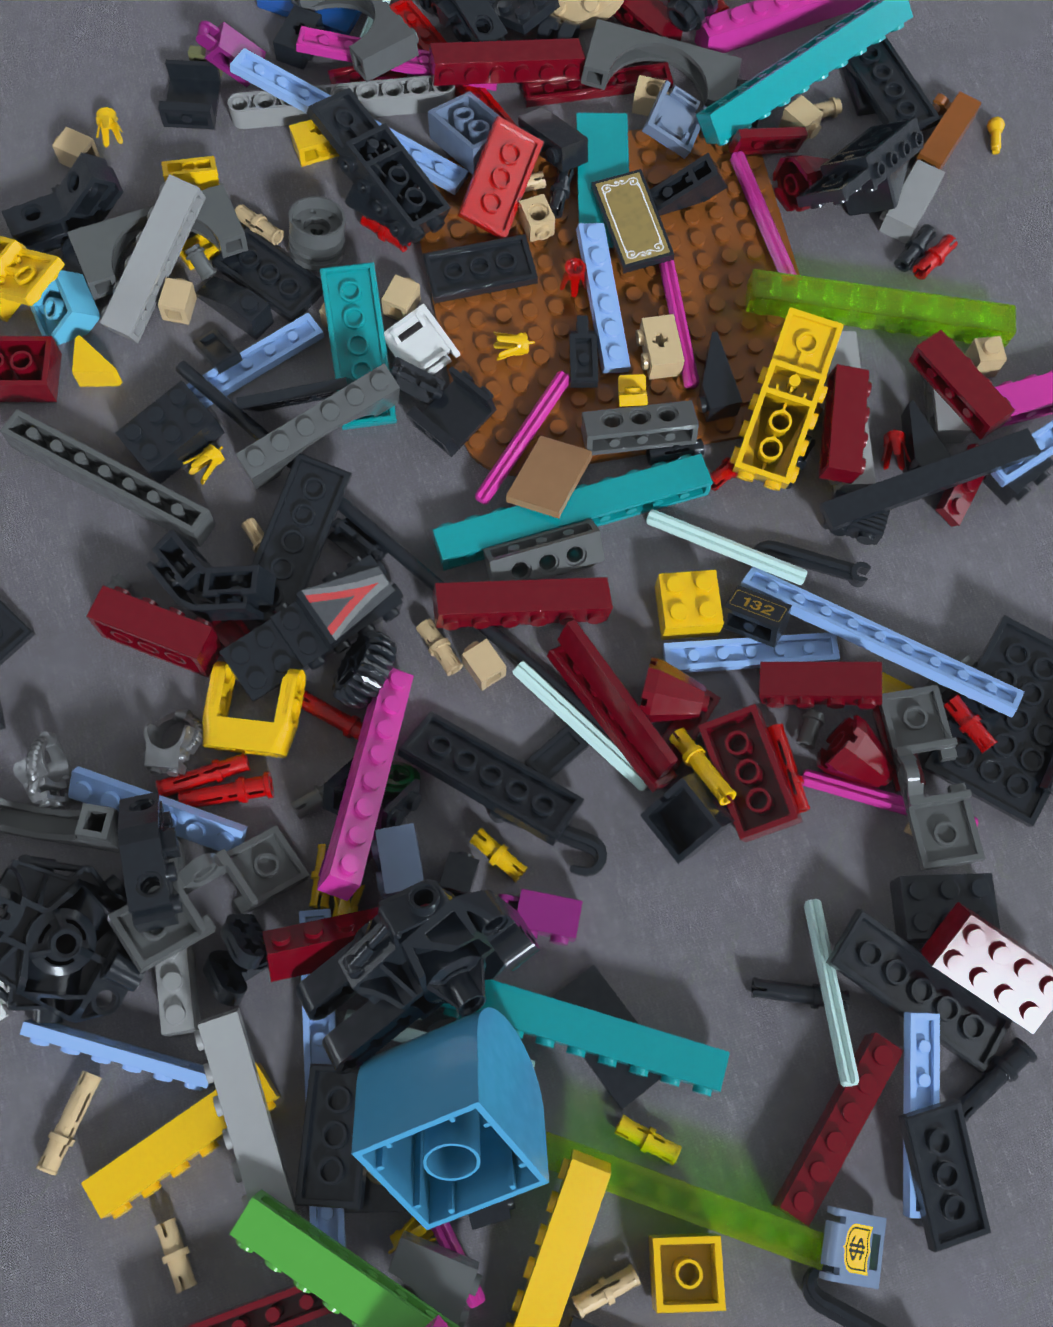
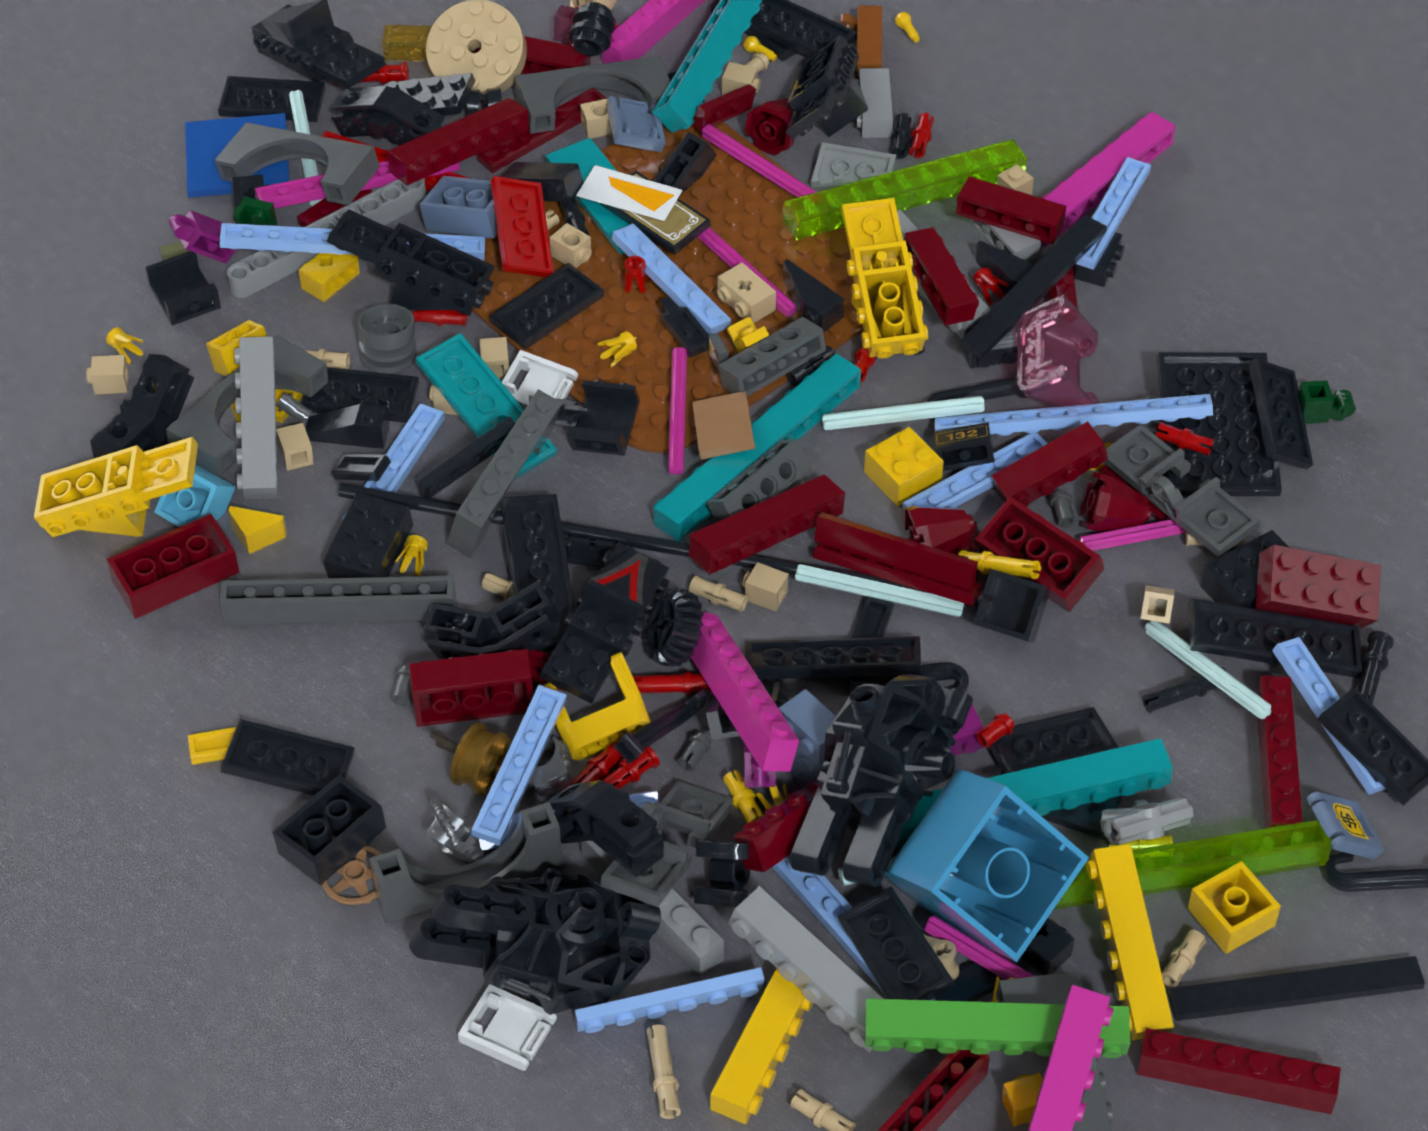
camera: 25 degrees left, 20 degrees down
(112, 707) = (476, 757): none -> pearl gold wheel
(134, 740) = (518, 765): none -> light blue plate
(246, 775) = (634, 745): none -> black piece
(283, 54) = (255, 212): none -> dark green bracket
(583, 945) = (995, 730): none -> red pin
(596, 394) = (717, 350): none -> dark grey tile
(620, 190) = (629, 193): none -> white sticker
(634, 981) = (1053, 740): none -> black tile
(657, 1130) = (1144, 820): none -> light grey piece
(829, 889) = (1157, 604): none -> tan brick
(839, 86) = (752, 45): none -> yellow piece
(847, 257) = (845, 165): none -> light grey wing
(899, 561) = (1050, 351): none -> clear pink windscreen

